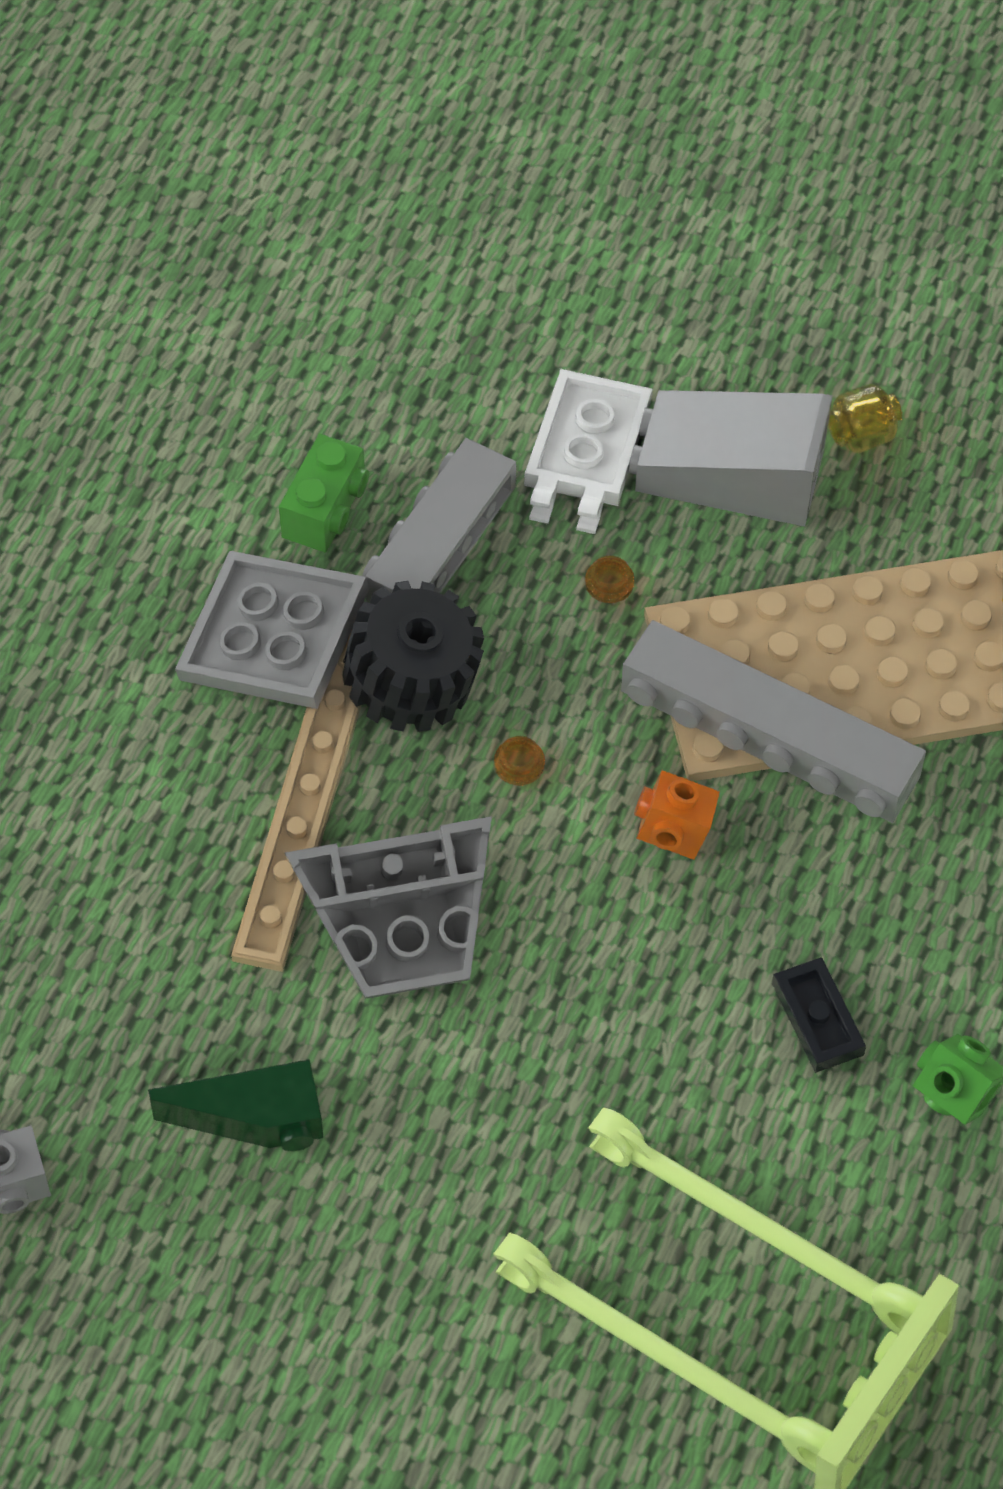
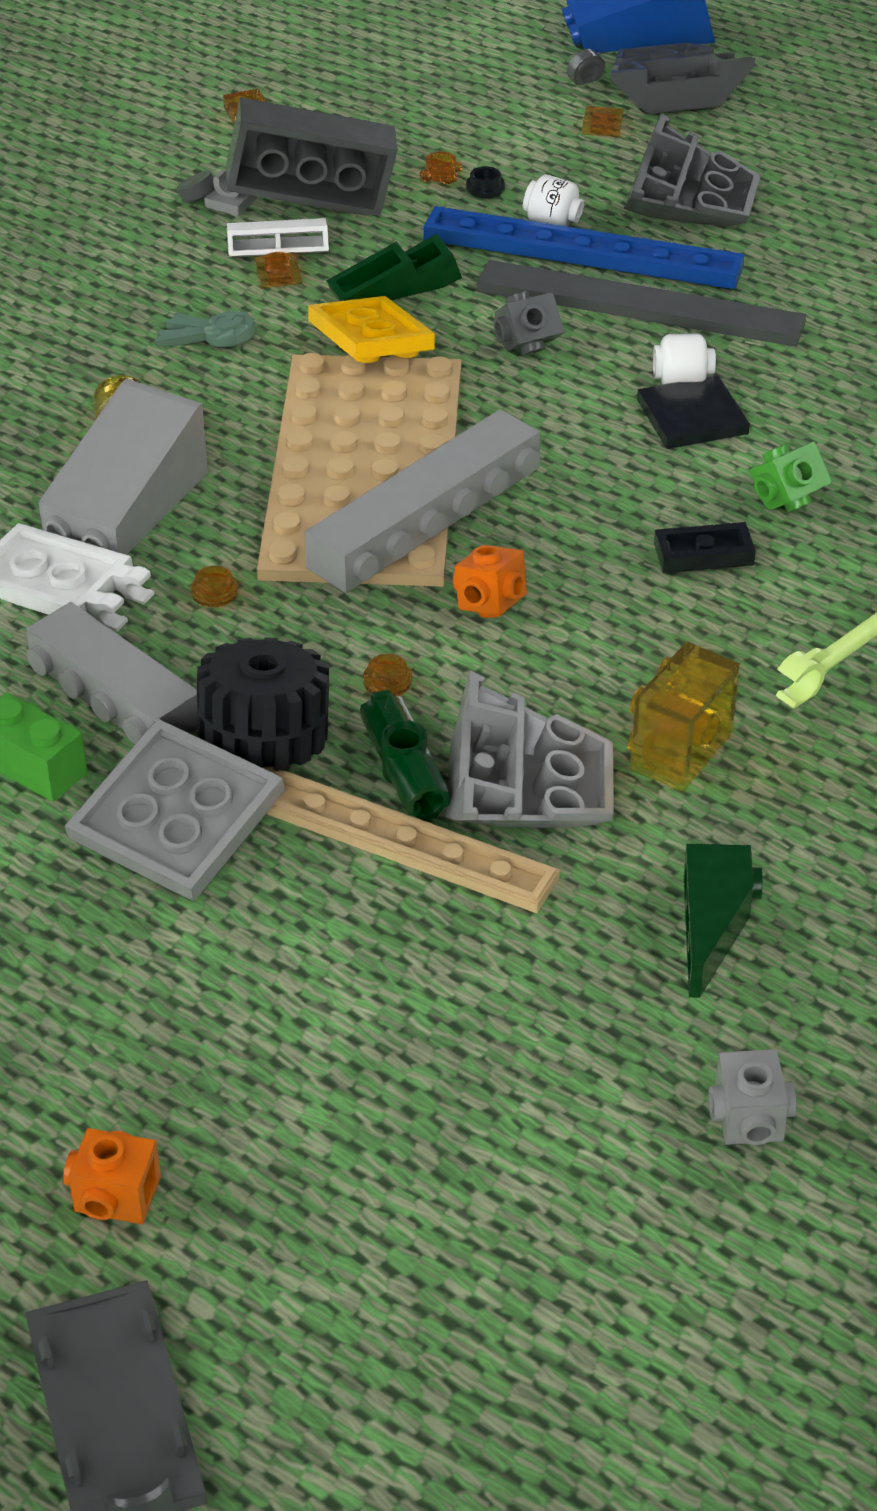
camera: 75 degrees left, 15 degrees down
(422, 783) = (405, 755): none -> dark green piece
(493, 1025) = (683, 716): none -> clear yellow brick

